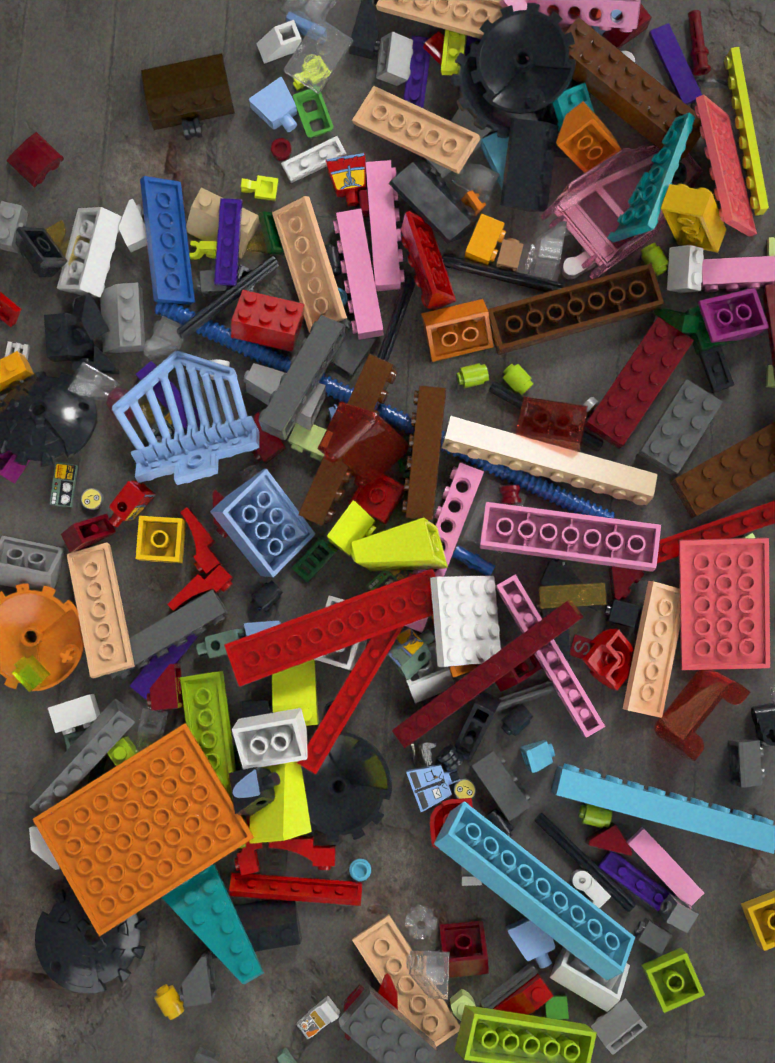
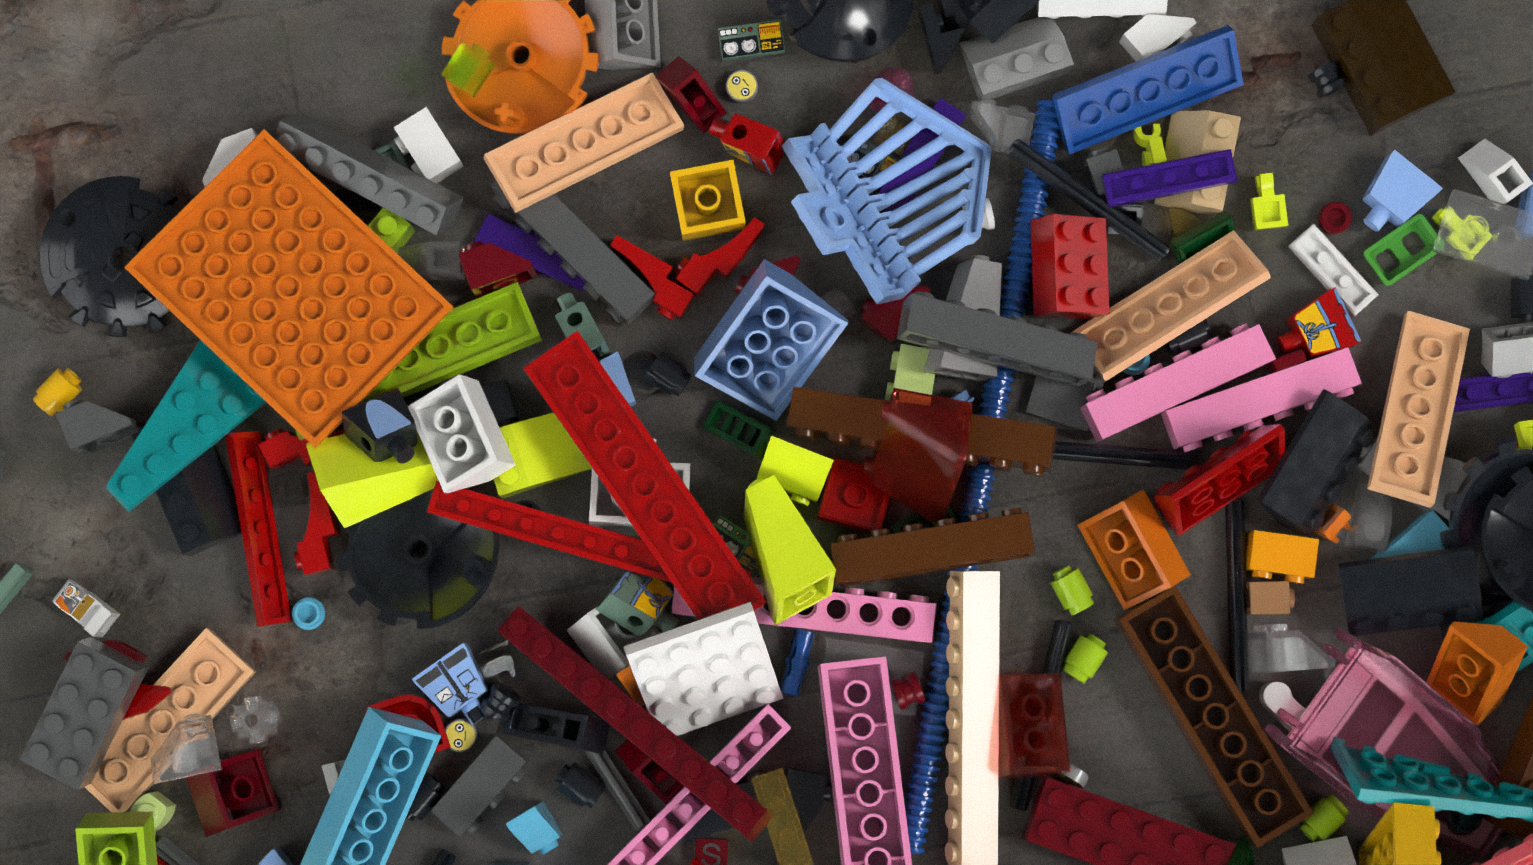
camera: 70 degrees right, 0 degrees up
(92, 383) = (907, 39): clear slope -> none

